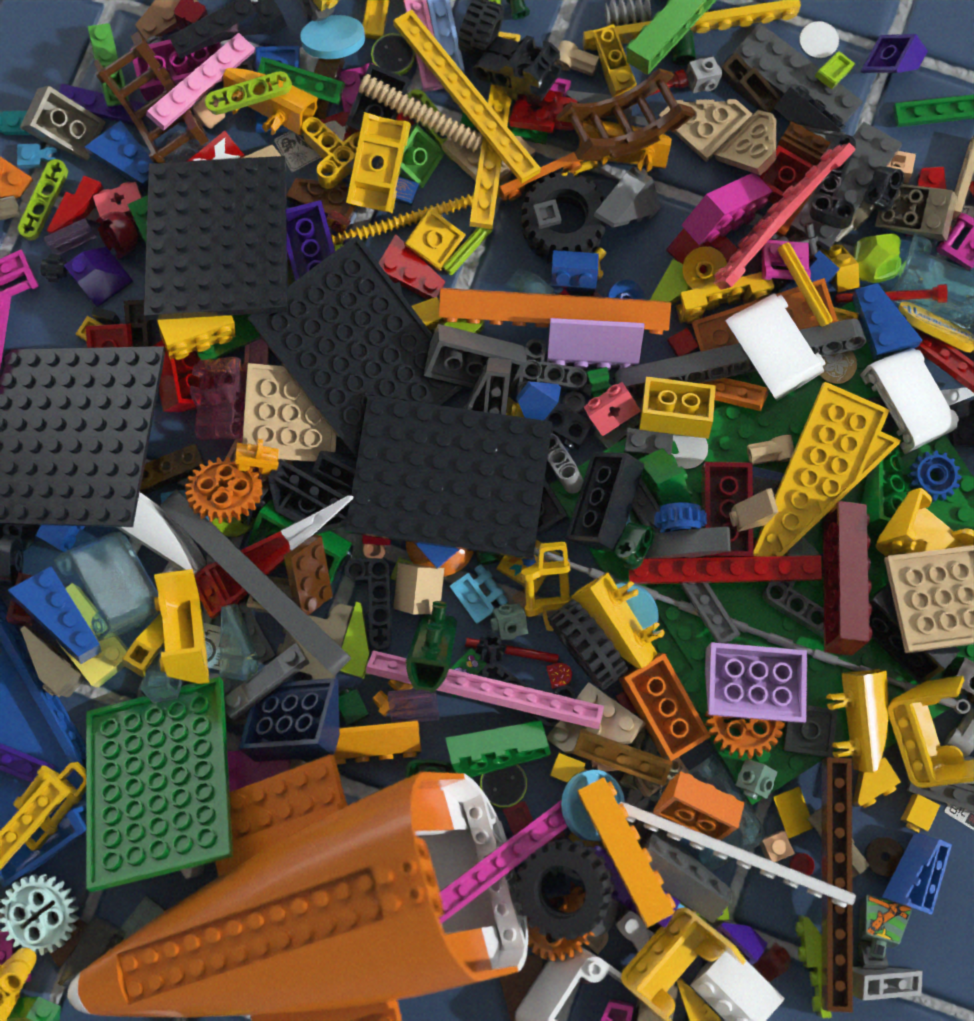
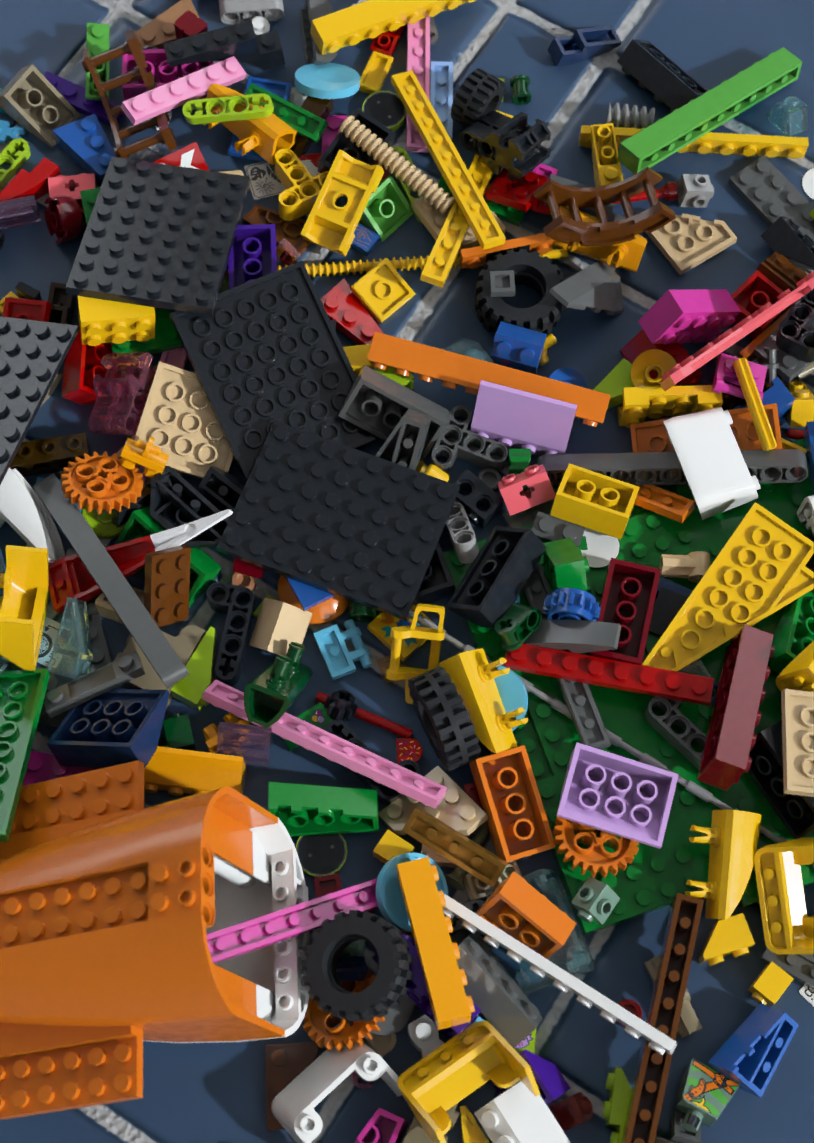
camera: 10 degrees right, 10 degrees down
(98, 274) = (32, 254): dark purple slope -> none
(204, 116) = (183, 129): light nougat head -> none
(466, 250) = (414, 307): lime axle -> none
(509, 621) = (367, 682): sand green brick -> none
(538, 399) = (450, 461): blue slope -> none
(576, 59) = (564, 149): tan piece -> none
(683, 343) = (616, 443): red tile -> none
(684, 50) = (680, 163): dark green piece -> none
(749, 83) = (740, 209): dark brown slope -> none
(751, 145) = (730, 266): tan plate -> none
(754, 511) = (651, 612): tan slope -> none
(776, 846) = (604, 981): light nougat brick -> none
(793, 812) = (629, 951): yellow sticker -> none
(815, 735) = (666, 867): pearl dark grey plate -> none
(839, 367) = (776, 497): pearl gold sticker -> none
(873, 855) = (710, 1018): dark brown piece -> none

